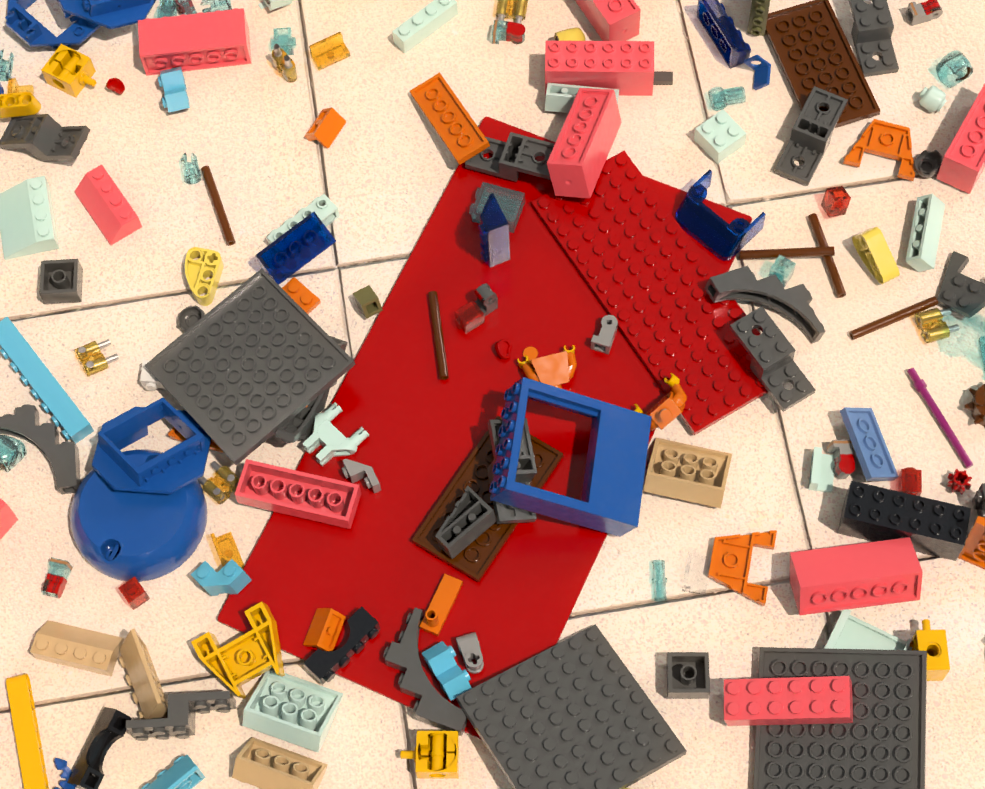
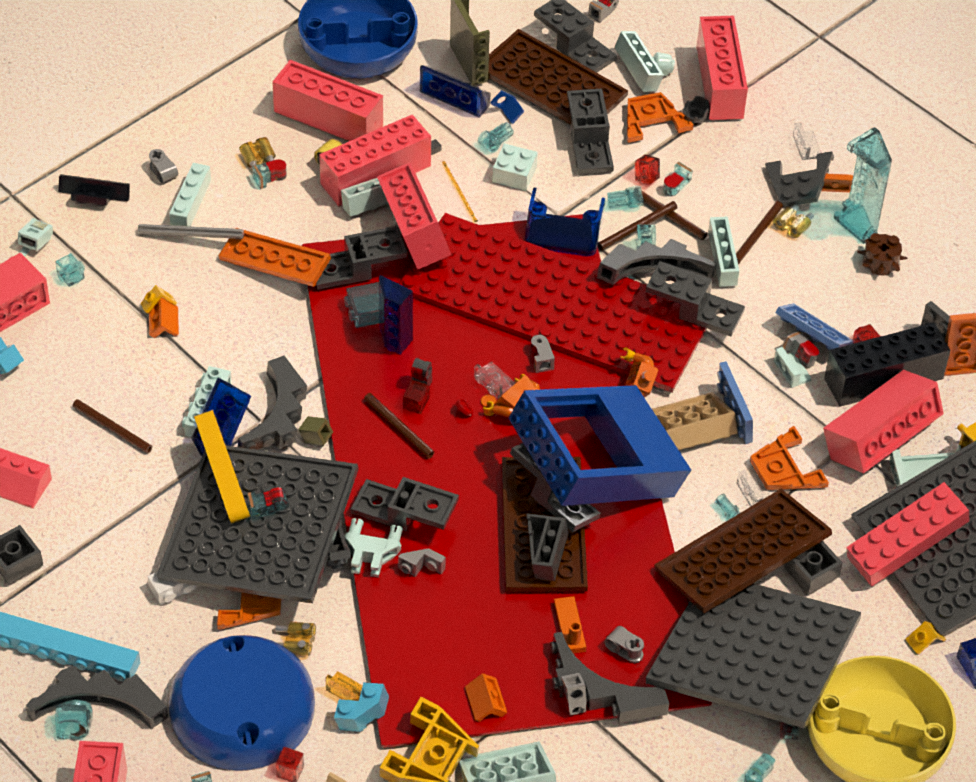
camera: 40 degrees left, 15 degrees down
(92, 359) = (92, 603): clear yellow piece -> none
(164, 472) = (255, 639): blue hinge -> none
(189, 317) = (163, 523): dark grey hair -> none
(190, 170) = (63, 408): clear light blue piece -> none
(196, 271) = (144, 484): light yellow beam -> none
(252, 299) = (222, 466): none -> yellow beam
(260, 353) = (267, 502): none -> clear light blue leg
(284, 64) = (86, 287): clear yellow piece -> none
(298, 494) = (379, 604): coral brick -> none
(325, 663) = (508, 721): black arch -> none
(329, 51) = (118, 259): clear yellow panel -> none
(332, 102) = (153, 296): none -> yellow bracket
(337, 281) = (279, 425): none -> dark grey arch
(383, 414) = (405, 504): none -> dark grey bracket
(390, 672) = (574, 693): none -> light grey leg
(401, 56) = (191, 231): none -> light grey axle
(435, 755) = (659, 737): yellow piece -> none
(444, 667) = (610, 665): medium azure brick -> none
(549, 336) = (493, 379): none -> clear bracket
(632, 627) = (742, 550): none -> reddish brown plate
(658, 134) = (459, 191): none -> clear yellow piece
(735, 483) = (735, 400): none -> medium blue plate
(799, 220) = (629, 197): none -> clear light blue piece
(842, 321) = (723, 251): none -> light aqua brick
(852, 227) = (678, 180): none -> clear light blue leg
(876, 254) = (709, 191): light yellow beam -> none
(911, 86) = (639, 61): none -> light aqua brick
(920, 386) = (819, 270): magenta bar -> none
(925, 233) = (734, 159): light aqua brick -> none
(953, 68) = (661, 34): clear light blue piece -> none
(956, 486) = (902, 319): red gear -> none

